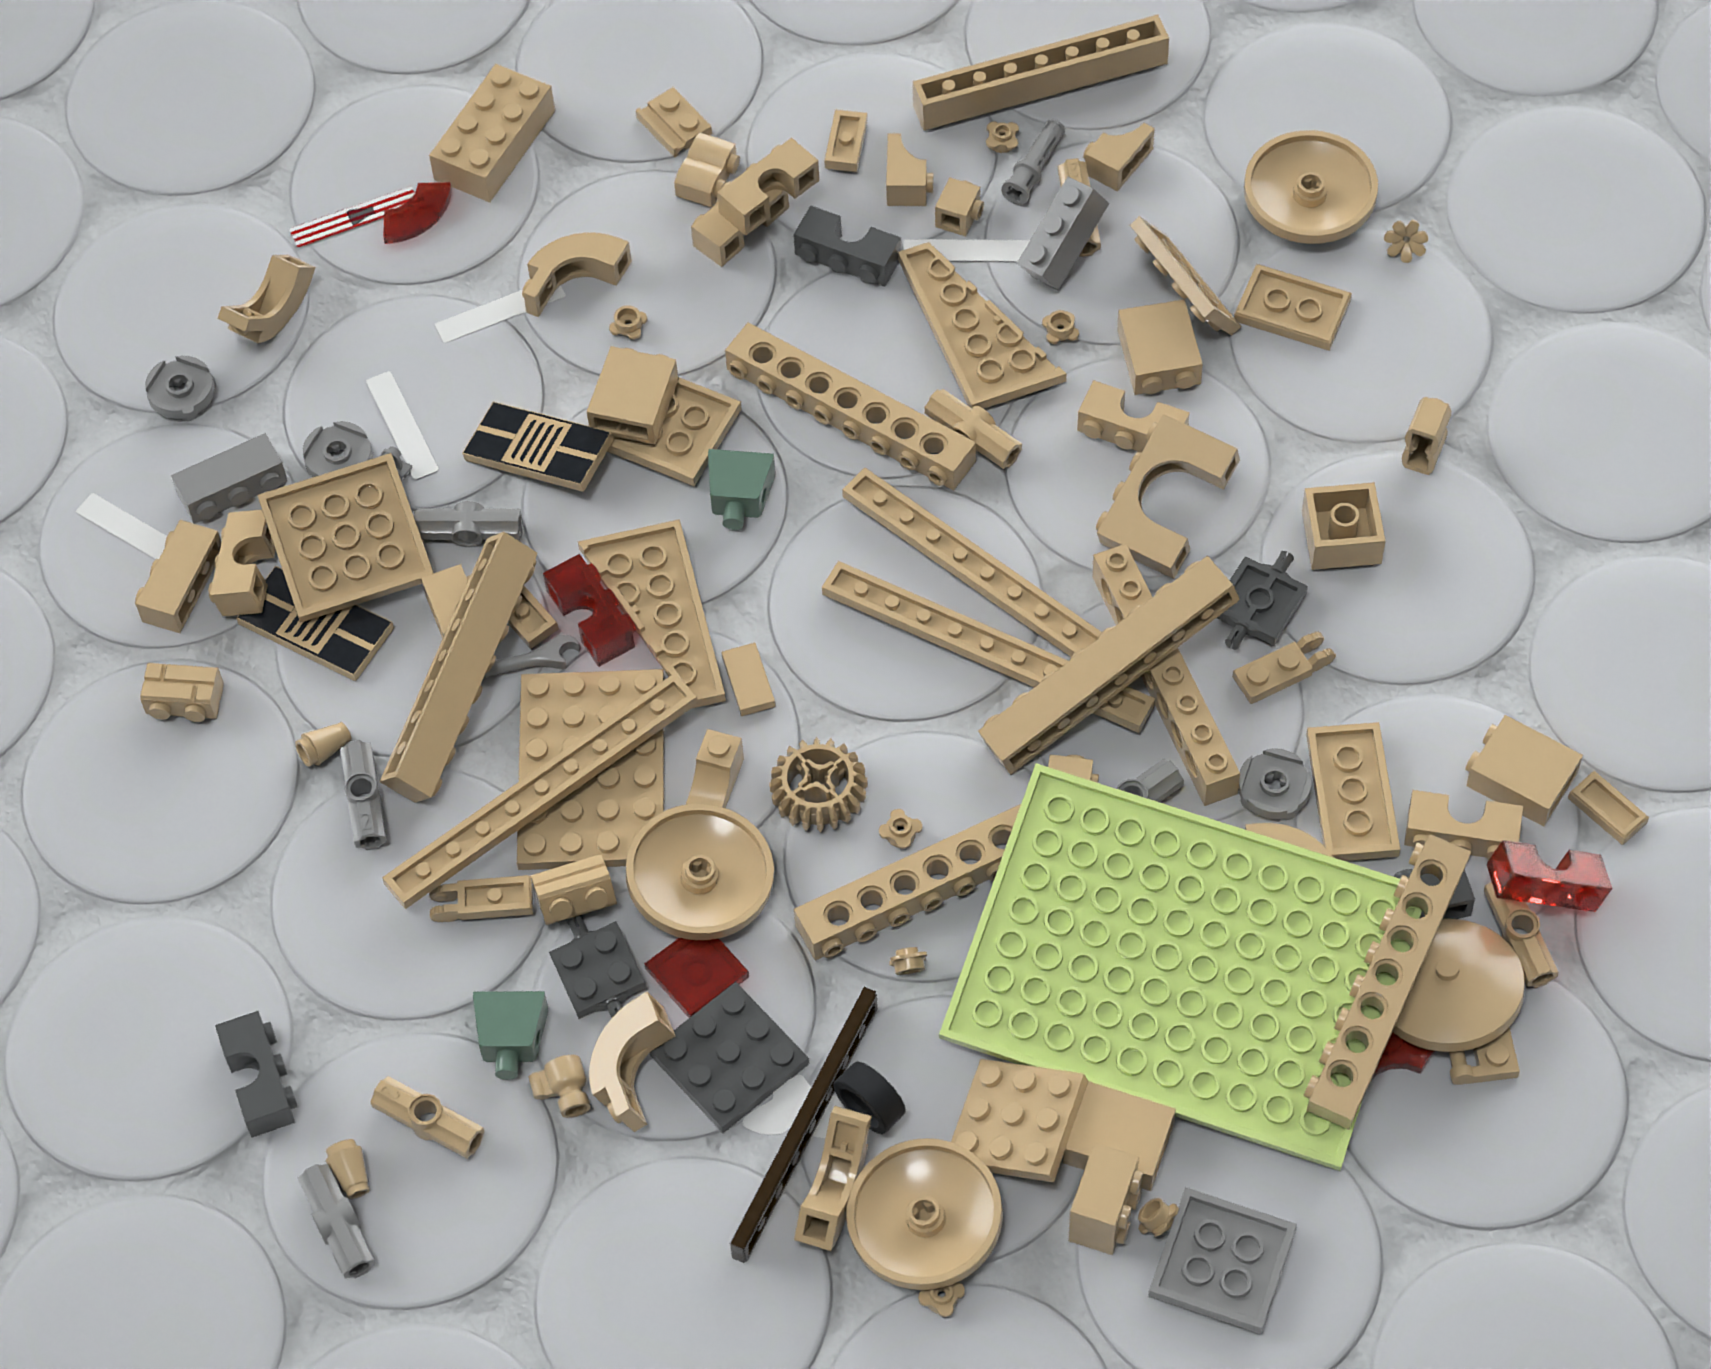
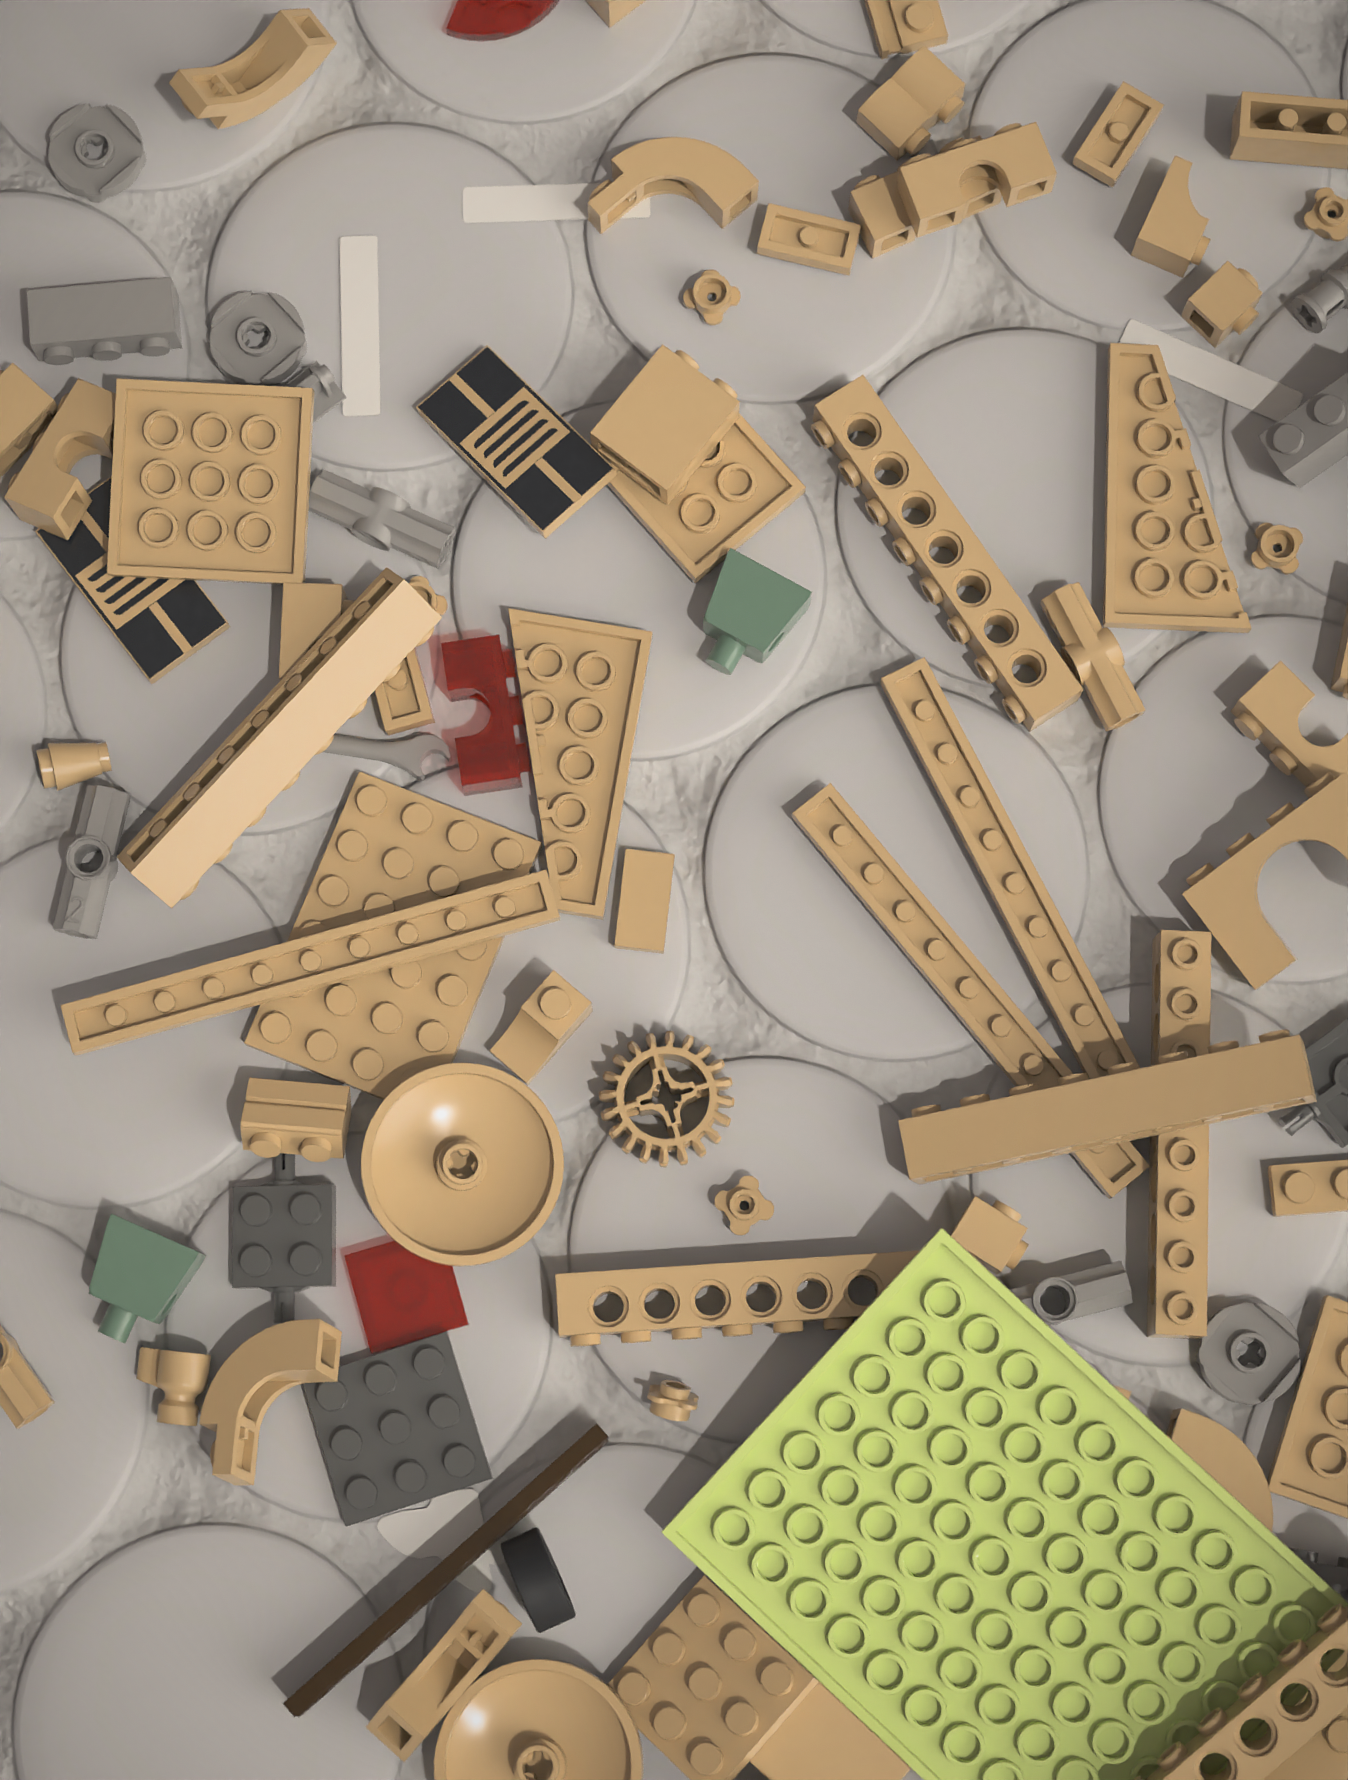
camera: 20 degrees right, 20 degrees up
(483, 898) = (188, 1077): tan hinge -> none
(676, 267) = (808, 239): none -> tan plate
(870, 258) = (1070, 336): dark grey arch -> none

